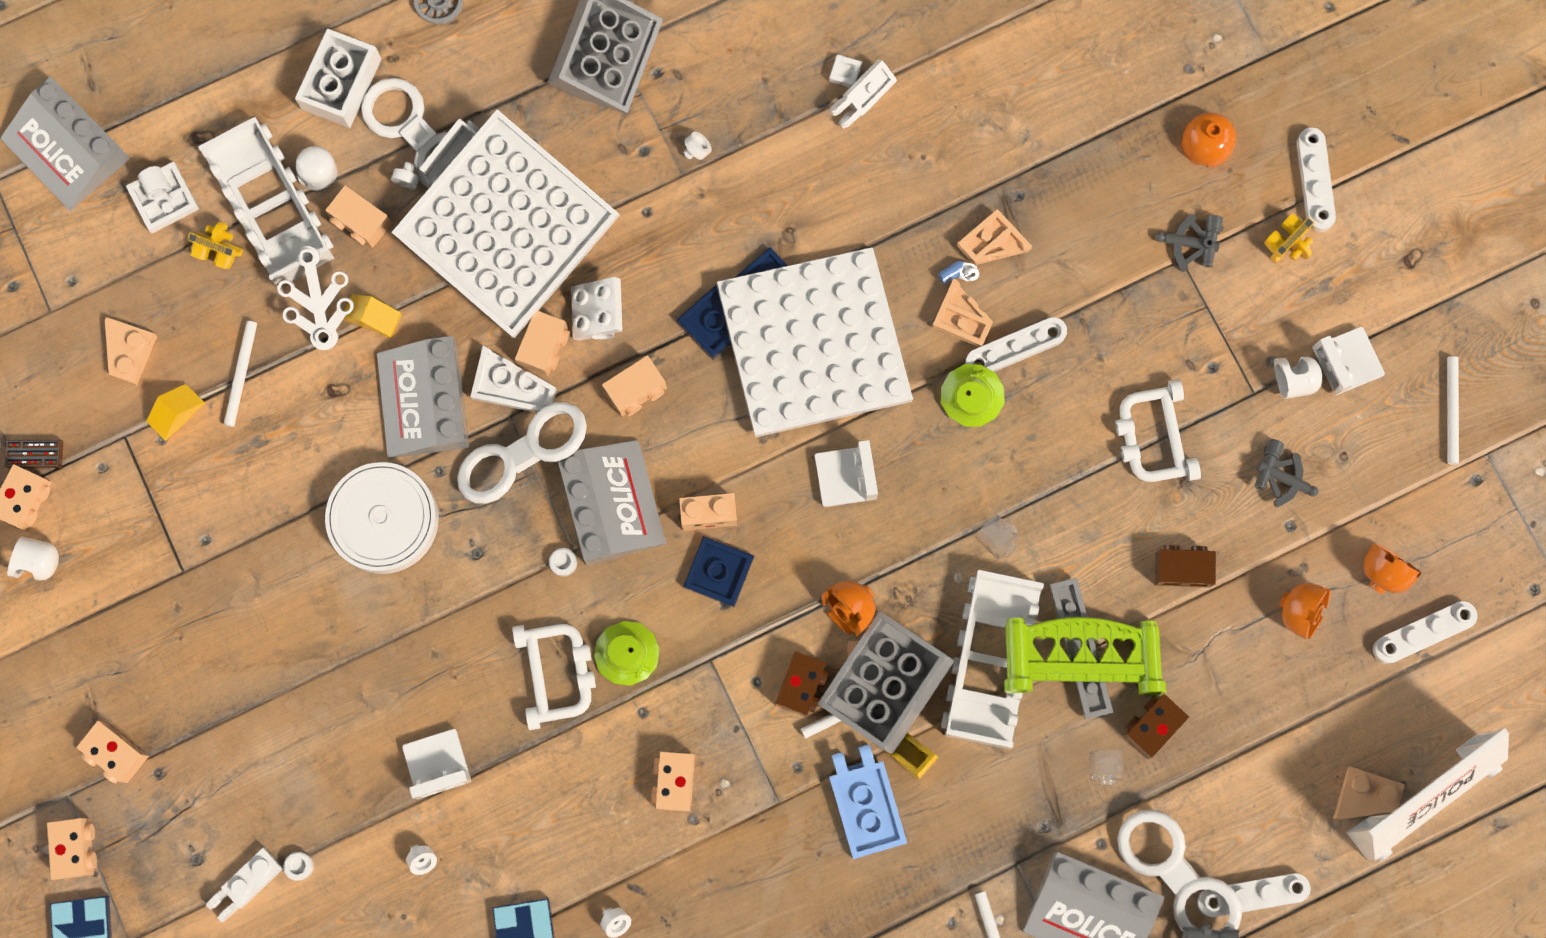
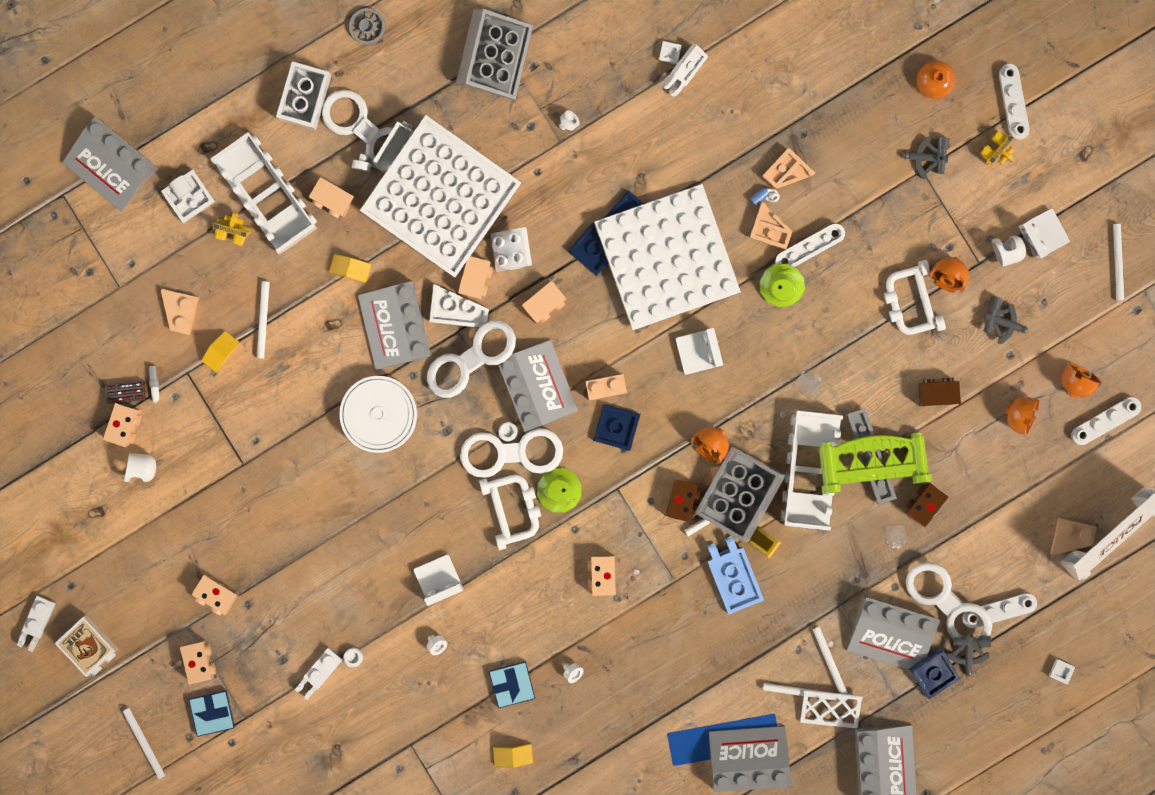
camera: 10 degrees left, 10 degrees up
(75, 445) = (154, 383): none -> light grey piece
(316, 168) = (296, 164): white helmet -> none
(317, 303) = (312, 265): white plant -> none
(564, 592) = (511, 452): none -> white bar
(1212, 402) = (950, 274): none -> orange cylinder

